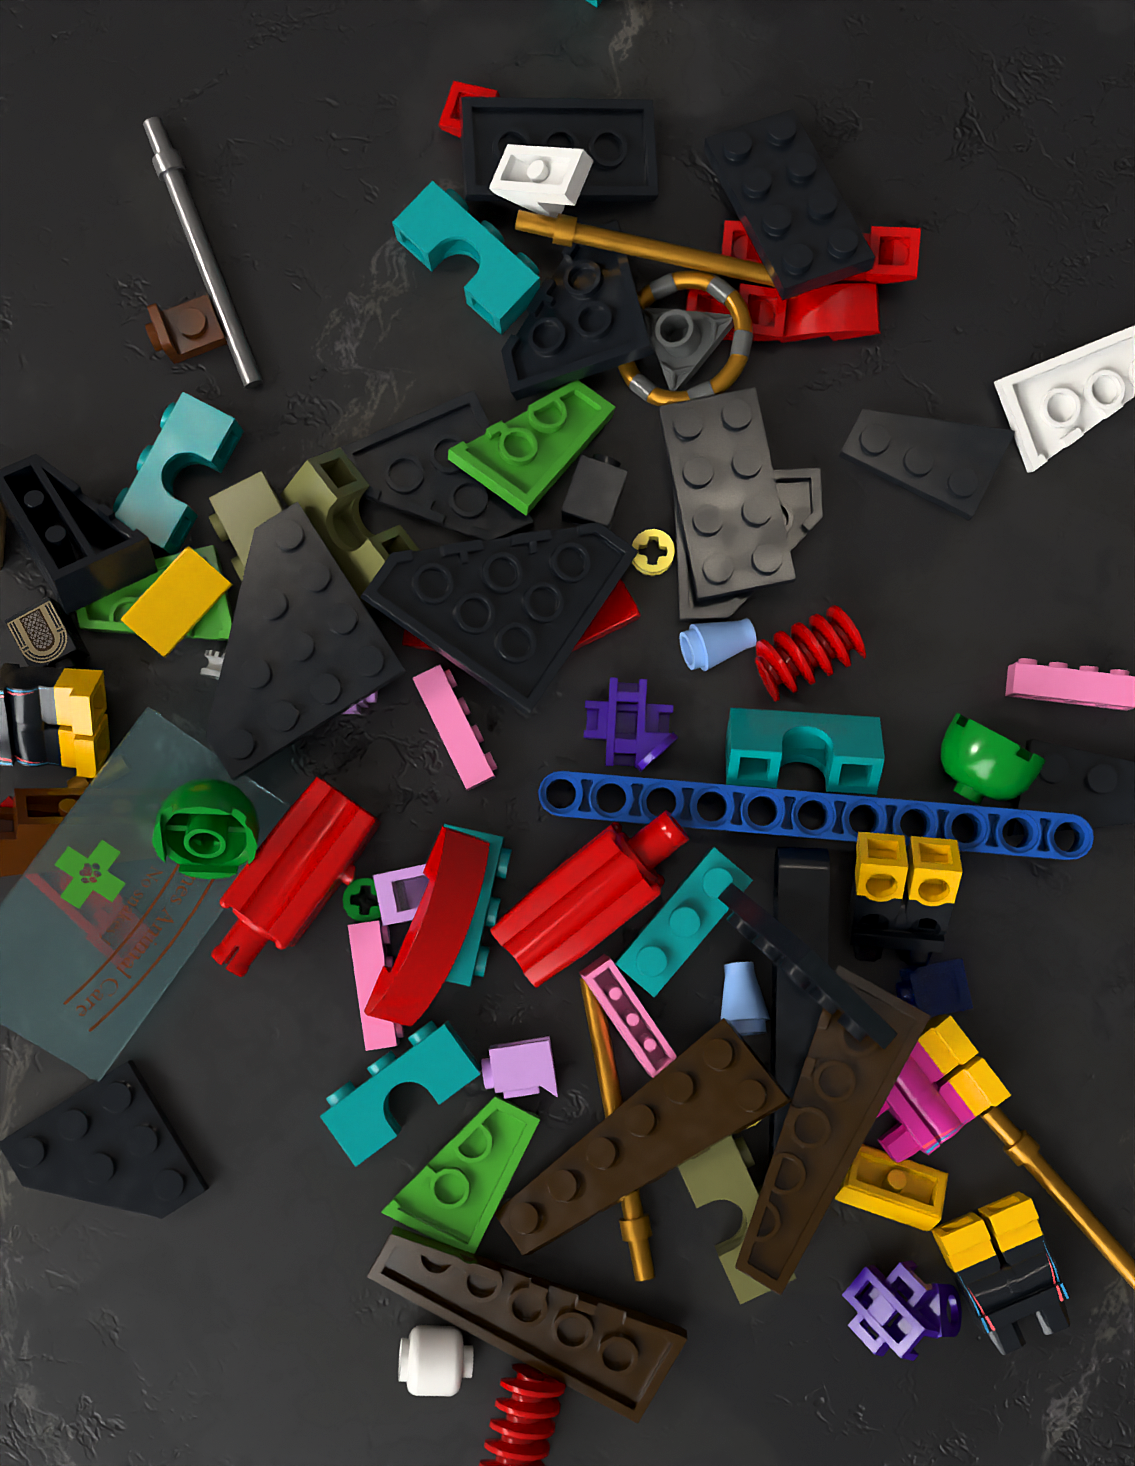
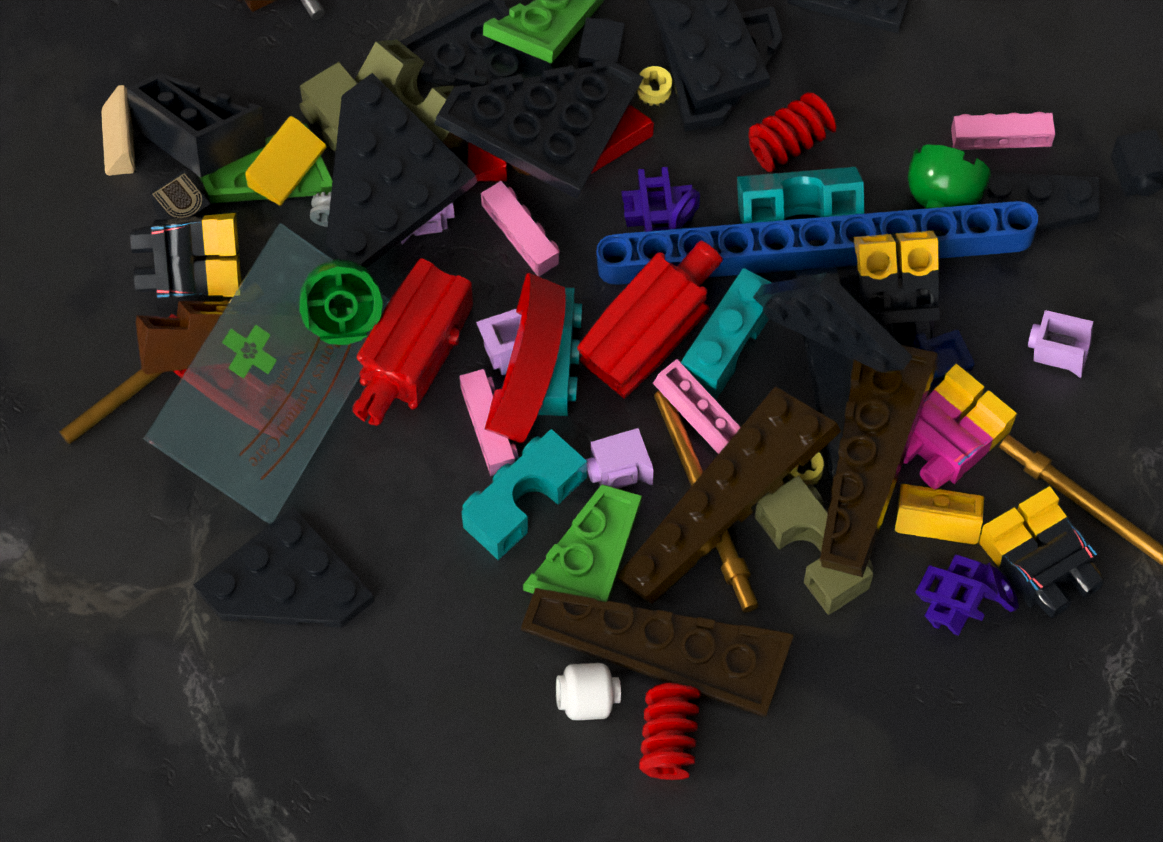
camera: 10 degrees left, 20 degrees down
(189, 436) = (277, 53): teal arch -> none
(355, 911) = (466, 349): green bush -> none
(715, 642) = (715, 138): light blue cone -> none
(743, 999) = (790, 381): light blue cone -> none
(1083, 994) = (1061, 341): none -> lavender window

